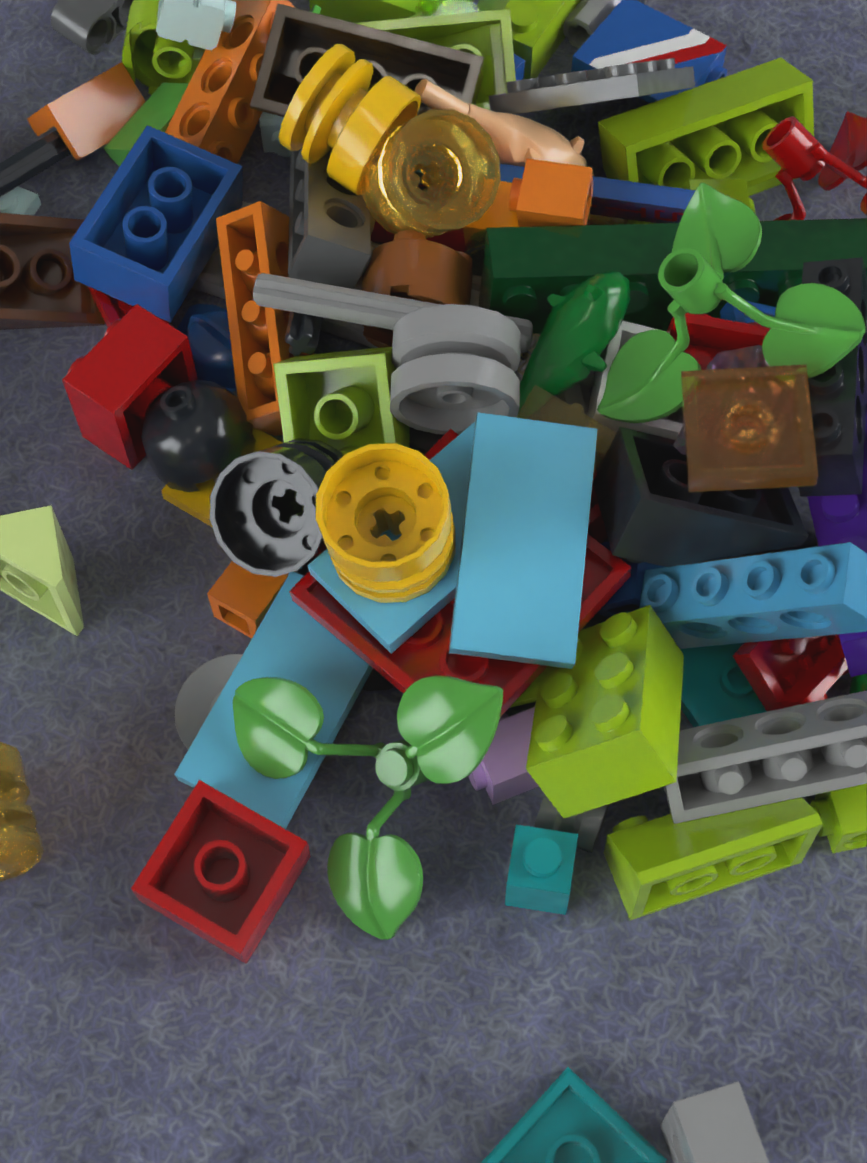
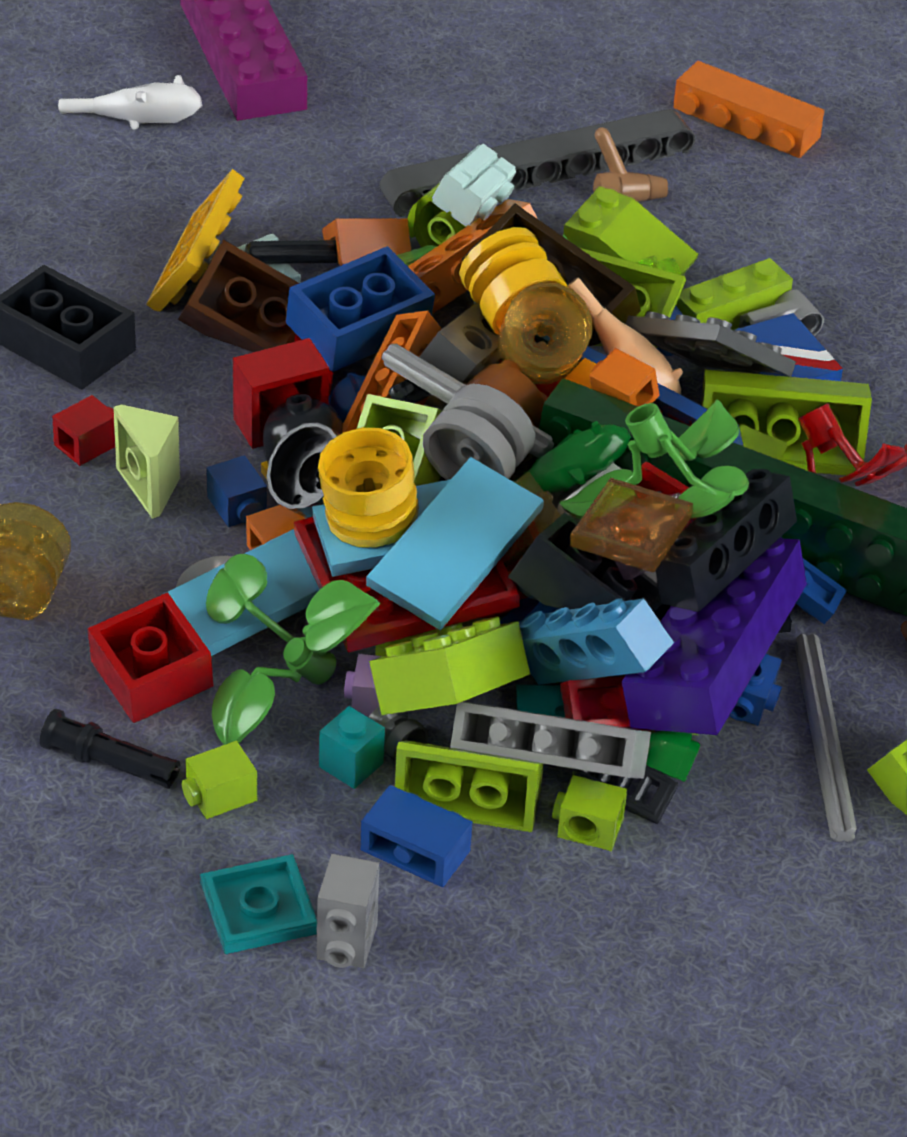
camera: 25 degrees right, 20 degrees down
(163, 552) = (236, 490): none -> blue brick
(220, 1037) = (90, 743): none -> black pin
(416, 1009) = (220, 780): none -> lime brick
(696, 957) = (416, 835): none -> blue brick

